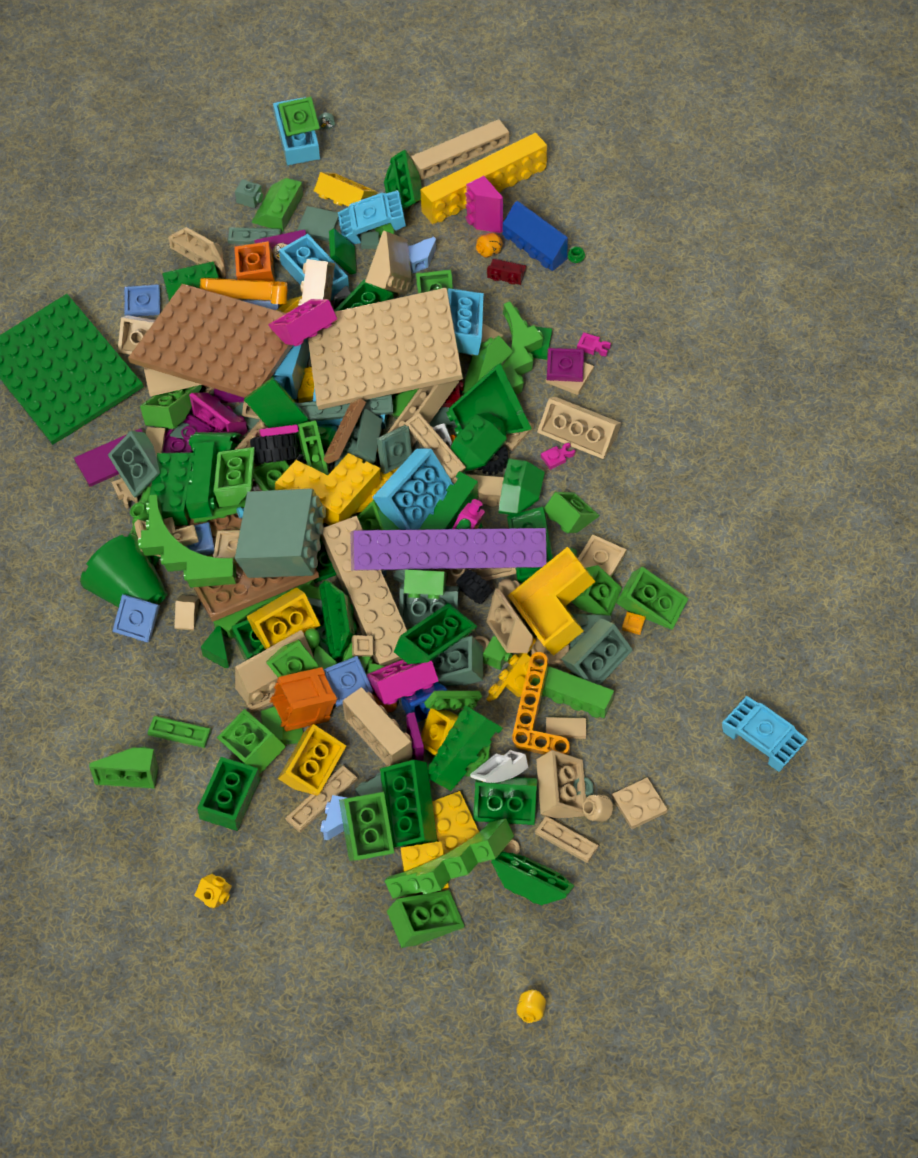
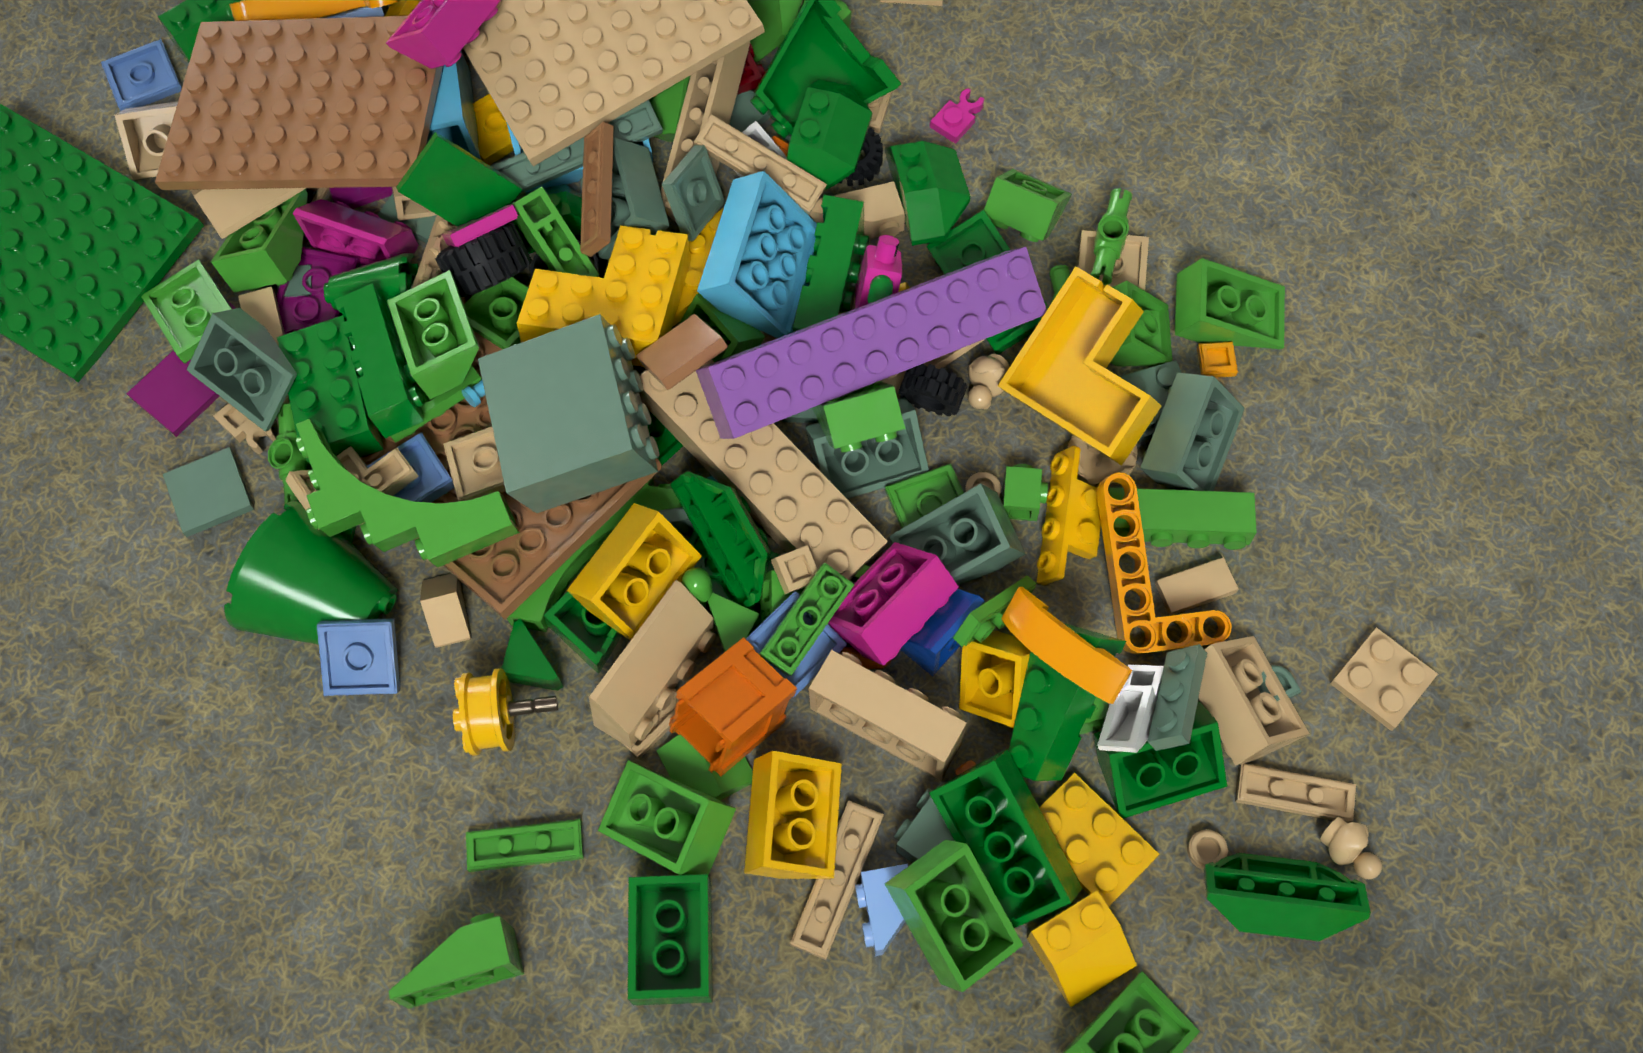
camera: 20 degrees left, 10 degrees up
(94, 518) = (208, 492): none -> sand green tile
(118, 423) = (184, 307): none -> bright green plate
(187, 661) = (489, 711): none -> yellow wheel
(291, 659) = (684, 645): bright green slope -> none
(346, 676) = (793, 636): none -> bright green tile
(347, 521) = (681, 351): none -> medium nougat tile
(414, 733) = (950, 692): magenta tile -> none
(433, 635) = (917, 509): green slope -> none
(459, 862) = (1151, 926): bright green arch -> none
(469, 720) = (1063, 648): none -> light orange slope
(508, 625) = (1028, 439): tan slope -> none
(521, 767) = (1177, 697): none -> sand green plate
(578, 869) = (1346, 844): none -> tan animal
(579, 427) = (972, 56): tan slope -> none
(597, 808) = (1327, 717): tan head -> none
(607, 535) = (1115, 224): none -> bright green pin
(764, 731) = (1531, 475): medium azure plate -> none

